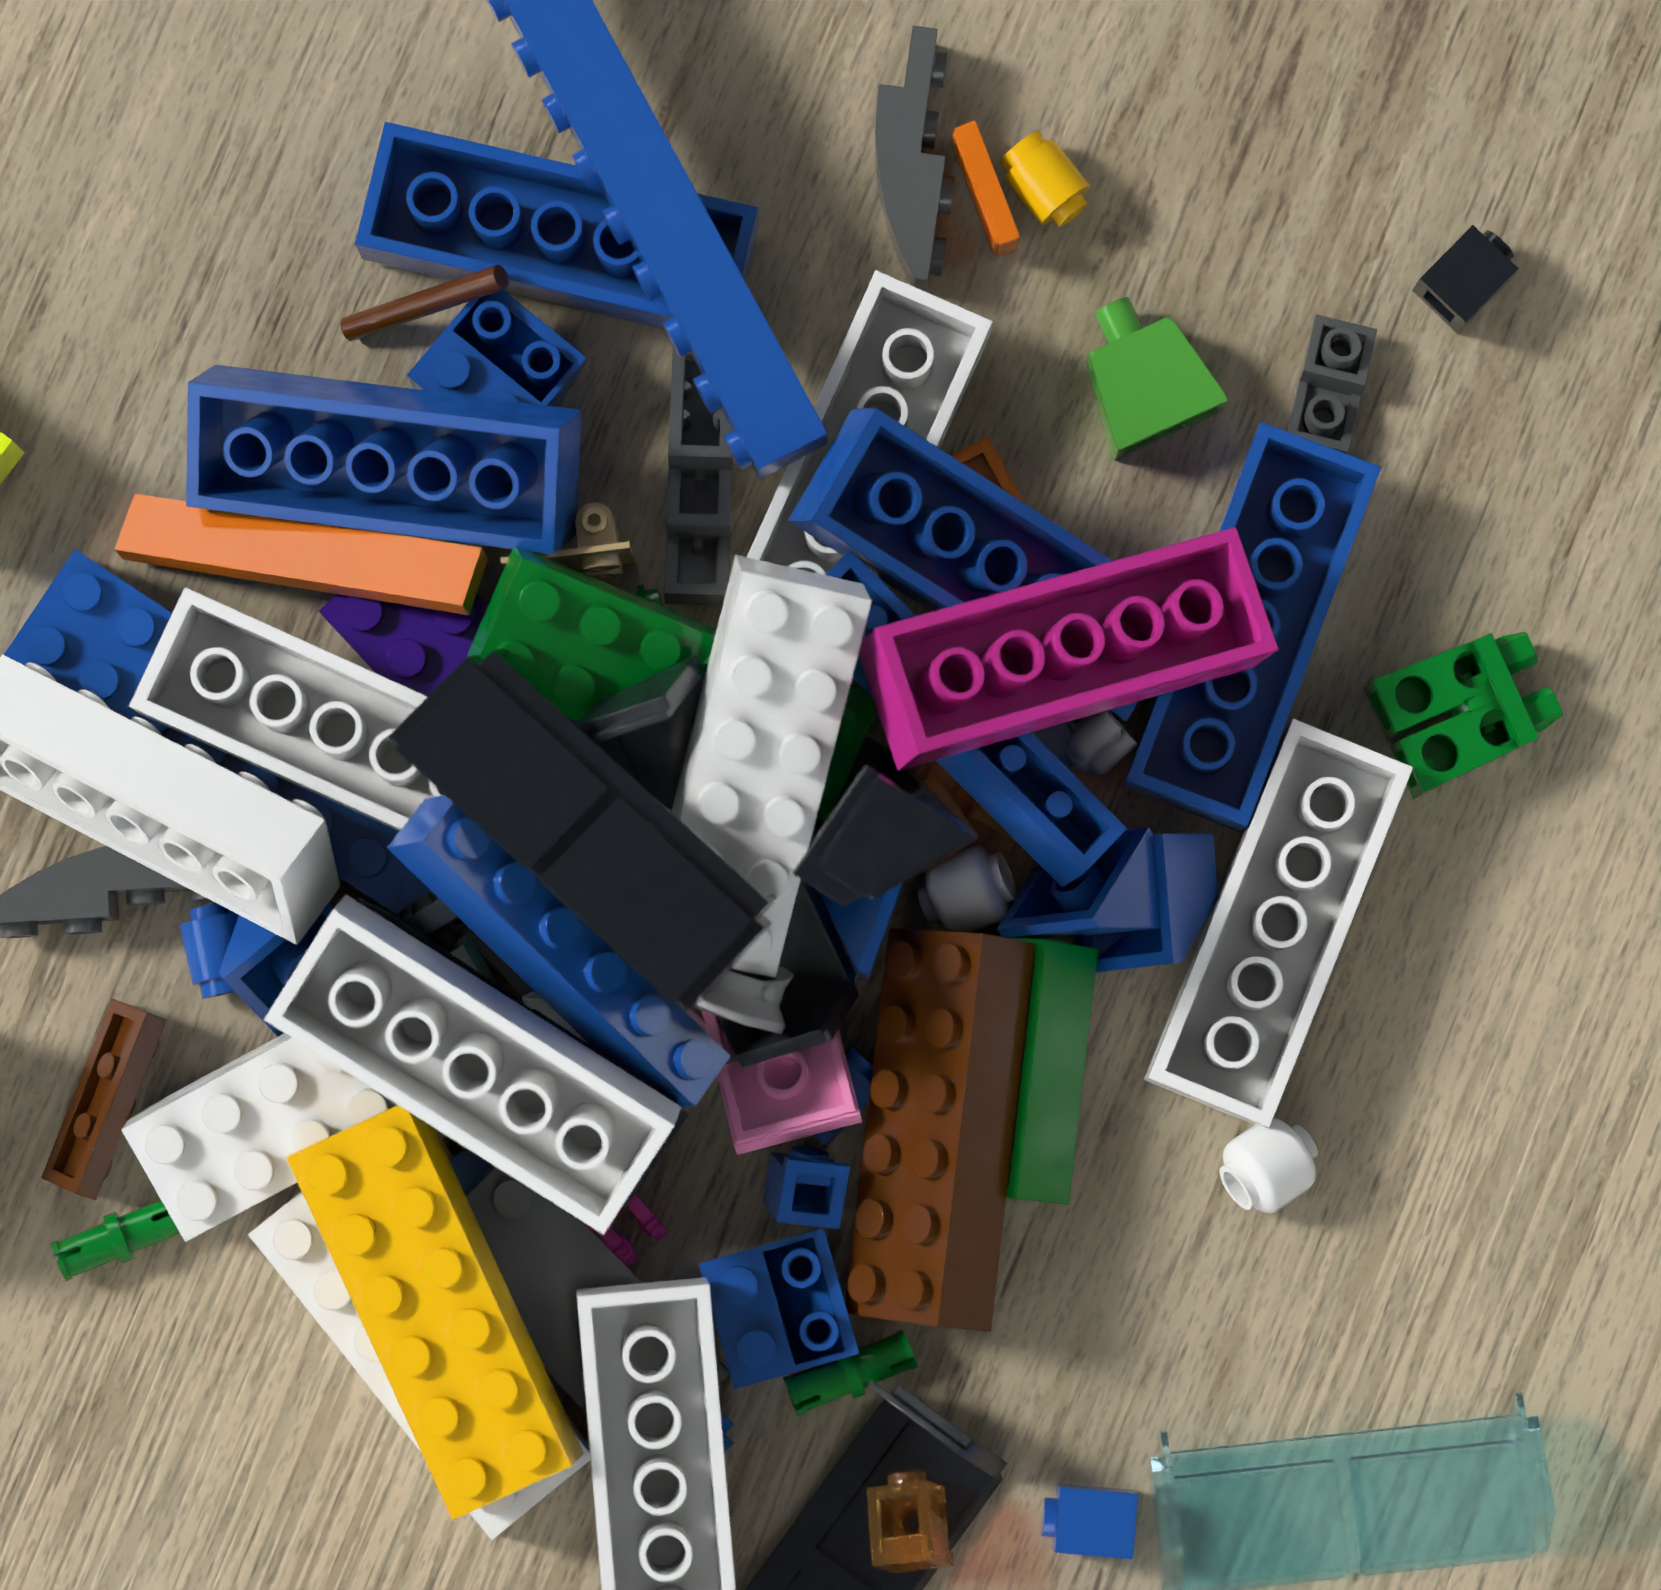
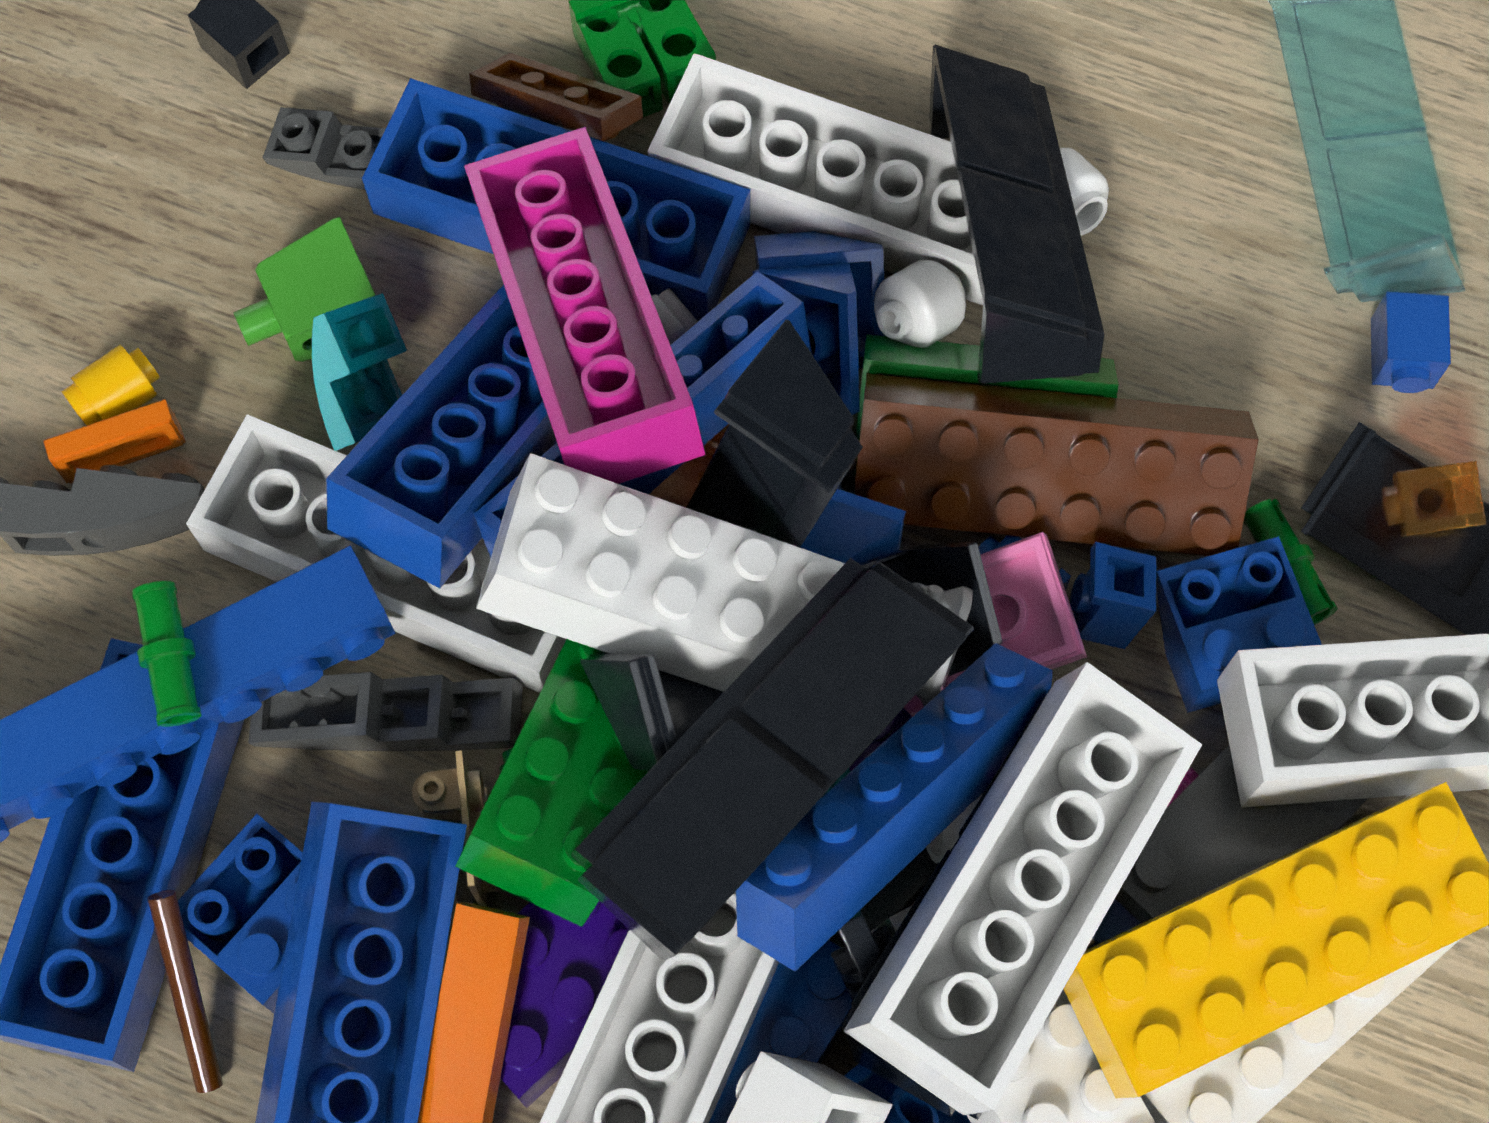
camera: 90 degrees left, 15 degrees down
(710, 267) = (166, 653): none -> green pin
(1035, 429) = (353, 368): none -> teal slope
(1123, 1003) = (920, 304): none -> white head
(1211, 1099) = (1020, 221): none -> black piece
(1375, 621) = (556, 96): none -> reddish brown plate

